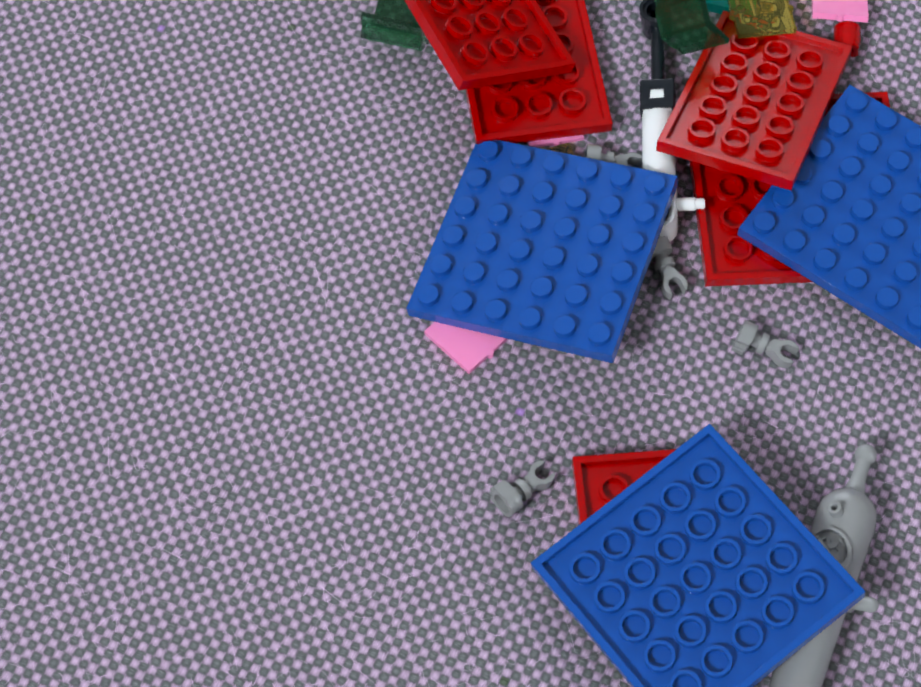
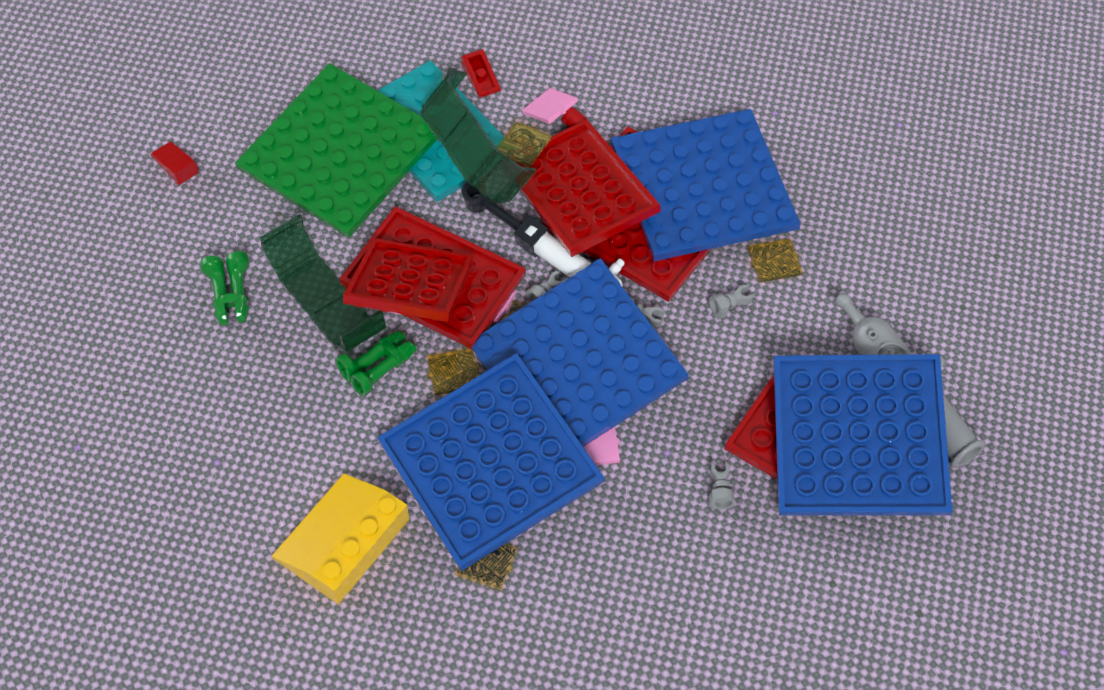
camera: 50 degrees left, 5 degrees down
(166, 187) = (342, 536): none -> yellow slope
(249, 330) = (491, 569): none -> clear yellow piece
(356, 250) = (490, 461): none -> blue plate
(410, 81) = (394, 355): none -> green piece
(436, 150) = (451, 370): none -> clear yellow piece
(862, 355) = (775, 260): none -> clear yellow piece

